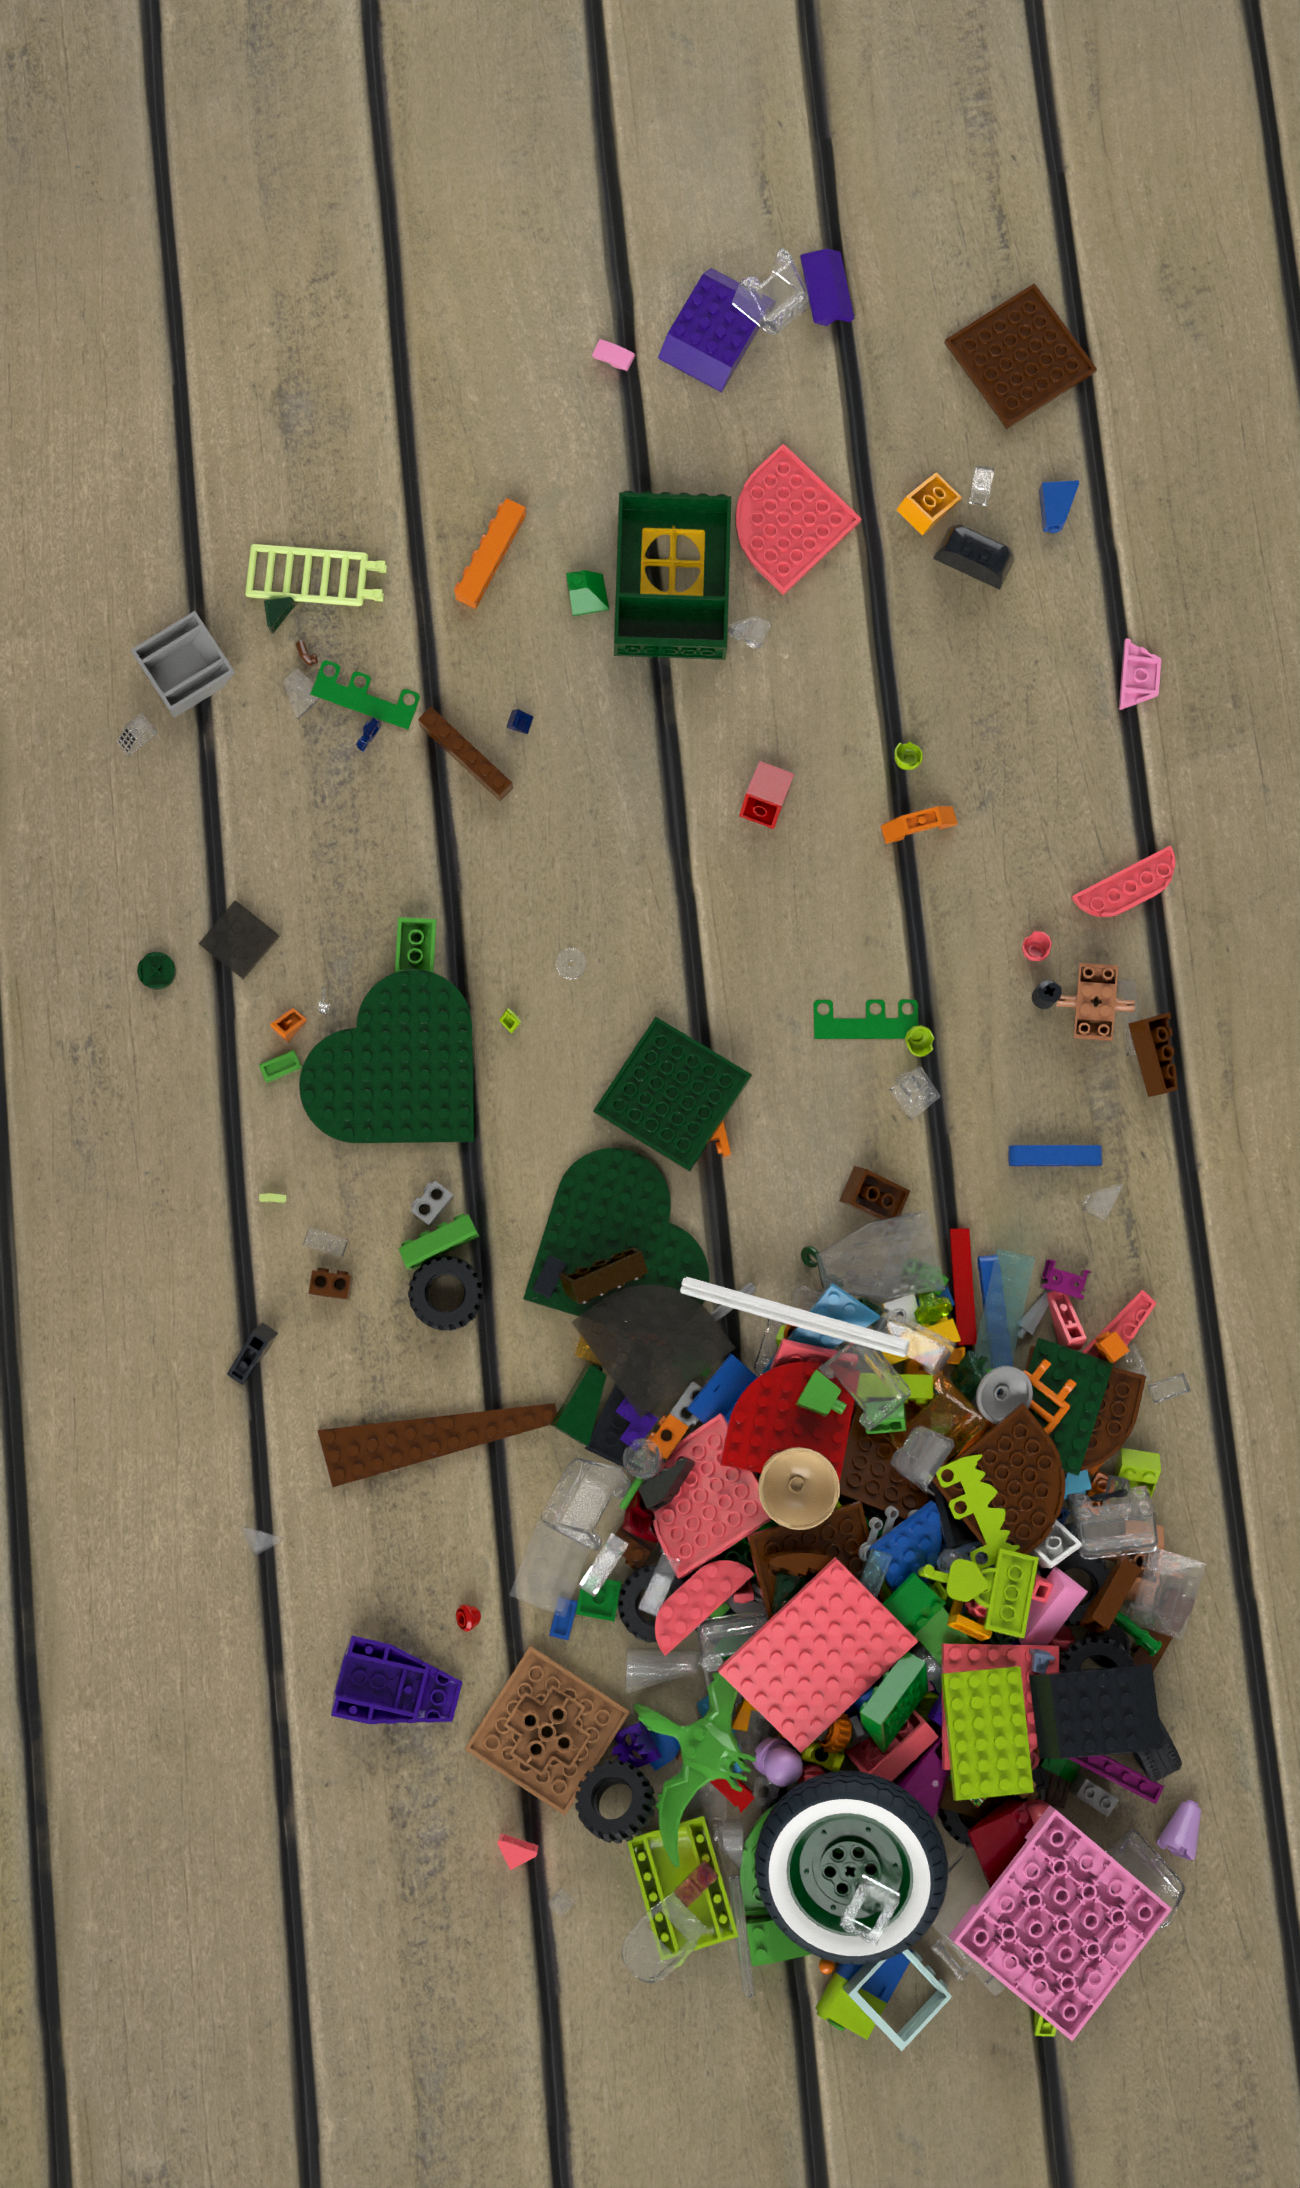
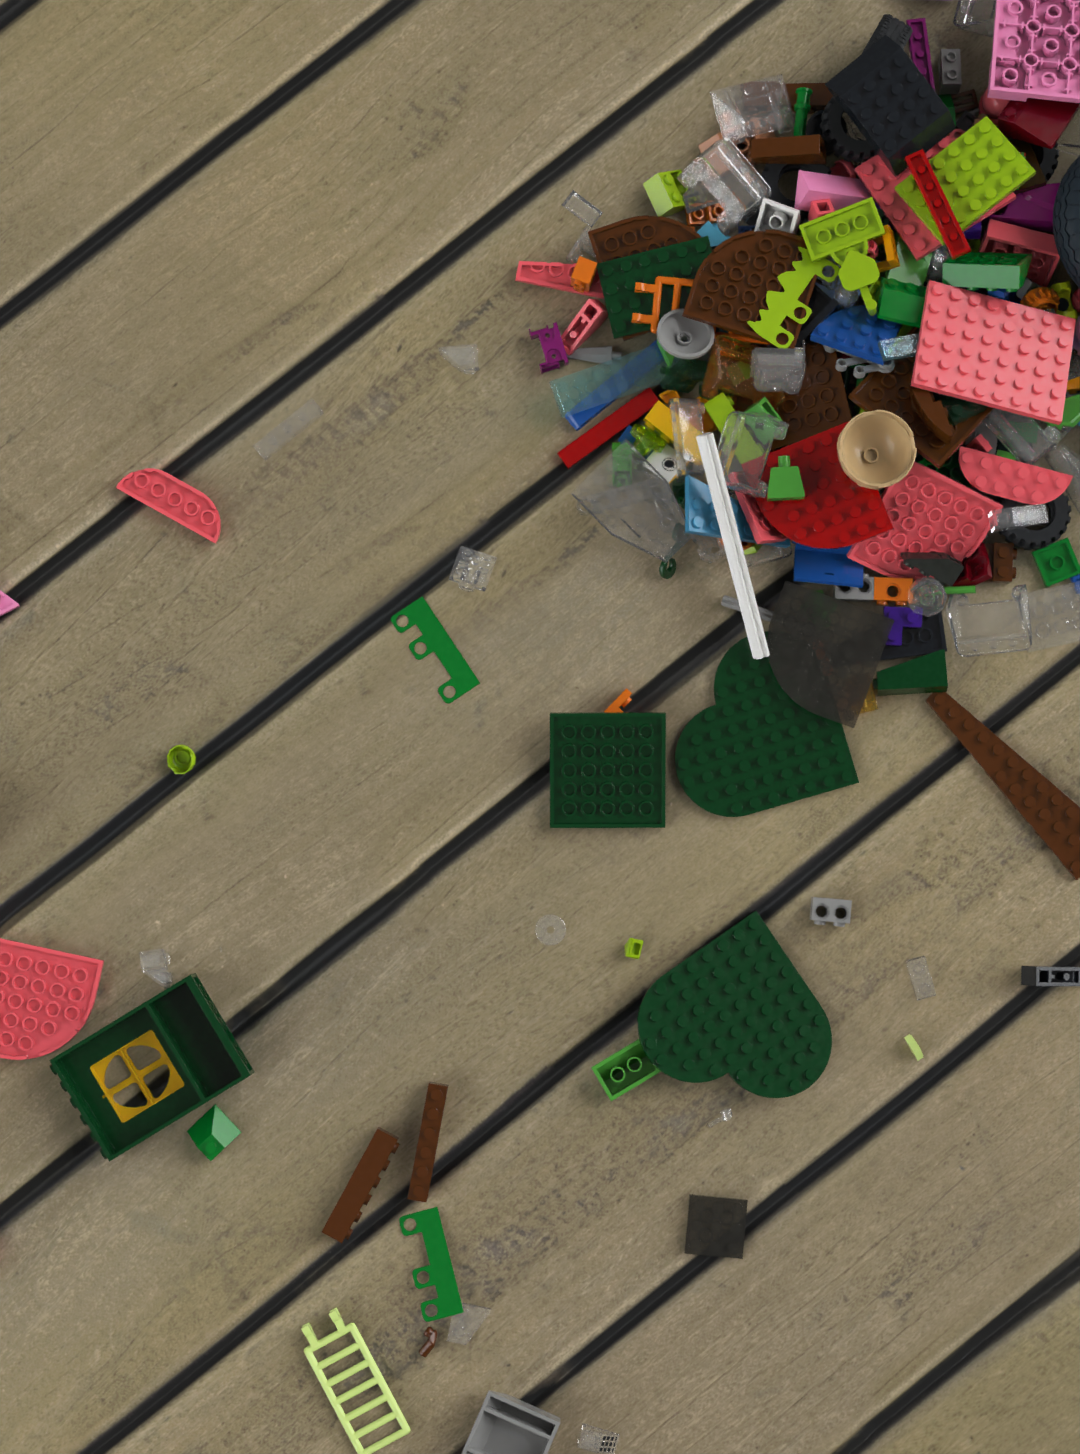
camera: 115 degrees left, 5 degrees up
(156, 970) = (788, 1278): dark green tile -> none
(277, 611) = (408, 1393): clear green slope -> none
(280, 1066) = (799, 1117): bright green tile -> none
(288, 1024) = (760, 1133): orange slope -> none
(330, 1289) = (957, 946): reddish brown brick -> none
(369, 731) = (461, 1238): clear blue plate -> none
(419, 1293) = (923, 842): black tyre -> none
(438, 1242) = (859, 882): bright green slope -> none
(467, 679) = (361, 1182): none -> reddish brown brick
(490, 553) = (232, 1241): orange brick -> none
(519, 721) = (367, 1114): clear blue slope -> none
(549, 1277) = (827, 772): black tile -> none
(603, 1275) = (799, 726): dark brown wedge -> none
(603, 1564) = (1032, 573): clear slope -> none
(766, 794) = (294, 858): slope -> none
(874, 1194) = (581, 547): reddish brown slope -> none
(918, 821) = (235, 712): orange slope -> none
(919, 1040) = (426, 592): lime hair -> none
(981, 1691) = (937, 204): none -> red plate
(1037, 946) = (279, 545): coral hair -> none
(1040, 1660) = (878, 174): sand blue brick -> none
(1046, 994) = (317, 503): black piece -> none
(1055, 1155) = (449, 419): blue beam -> none
(1098, 984) = (278, 472): nougat slope -> none
(1104, 1496) = (708, 206): black piece -> none
(1155, 1053) = (308, 389): reddish brown wedge -> none

